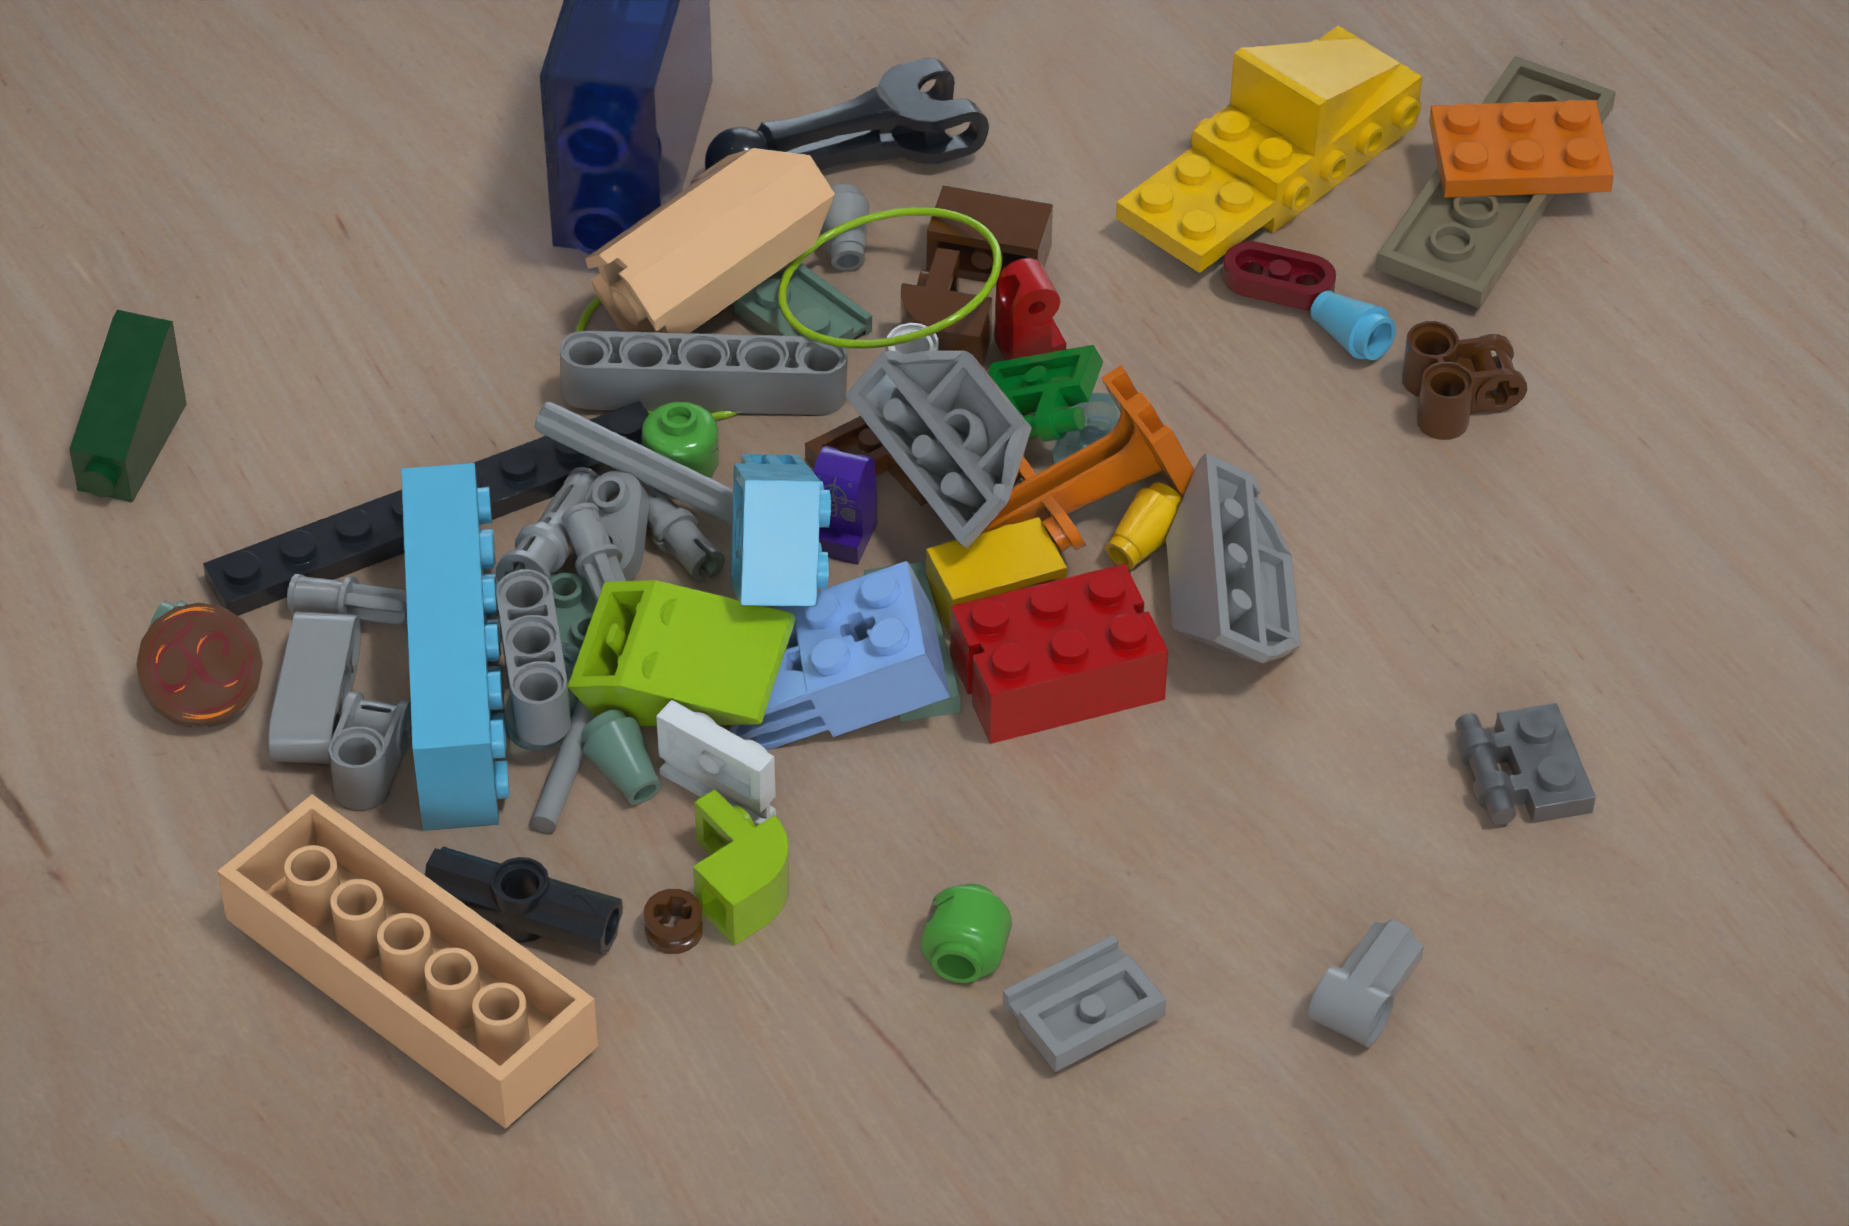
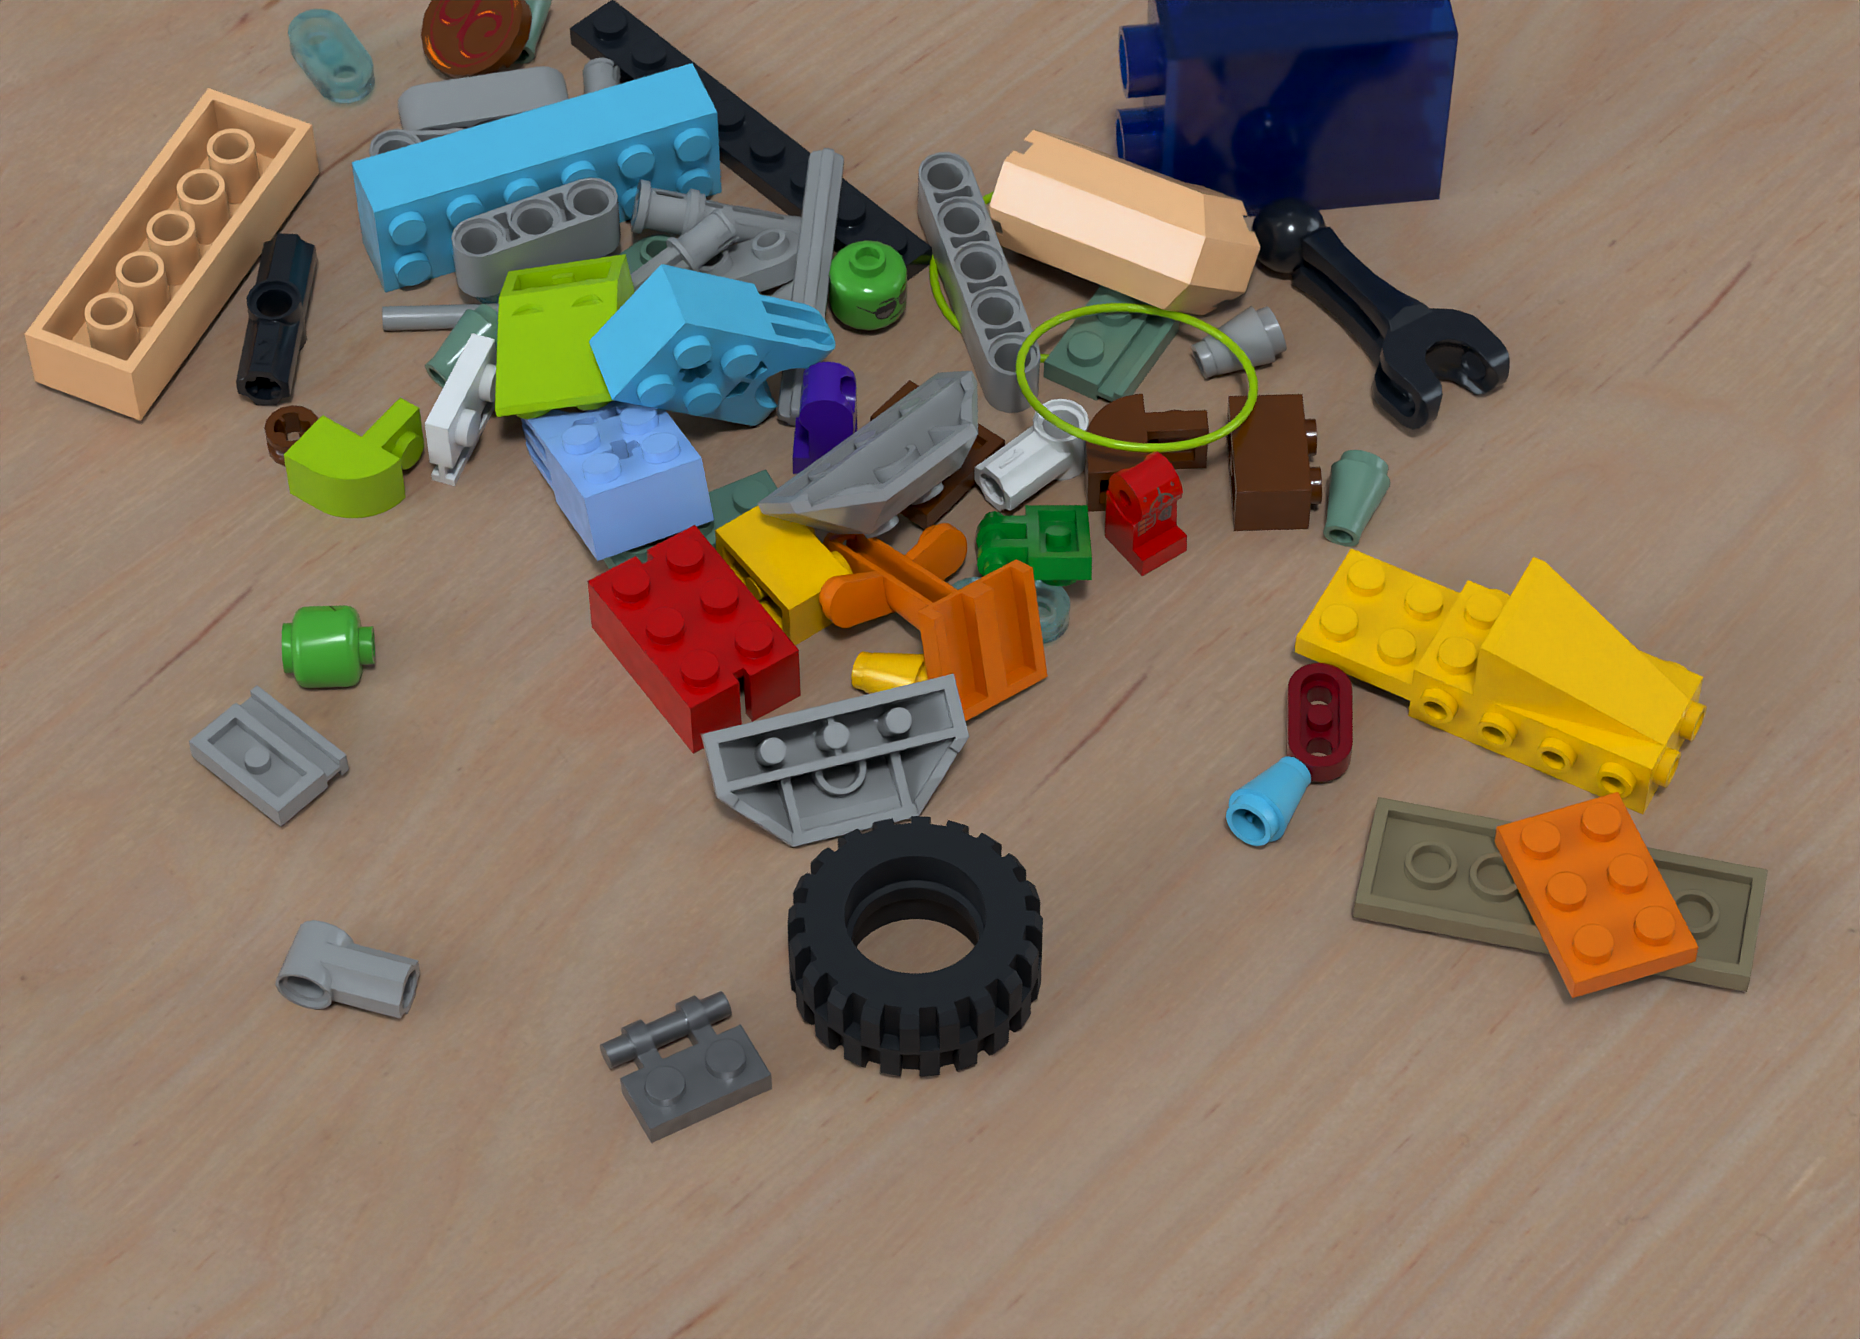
camera: 75 degrees right, 5 degrees up
(167, 797) = (331, 56): none -> clear light blue plate
(1040, 185) = (1354, 494): none -> sand green cone
(1454, 619) = (908, 875): none -> black tyre
(1458, 377) = (1217, 910): reddish brown piece -> none

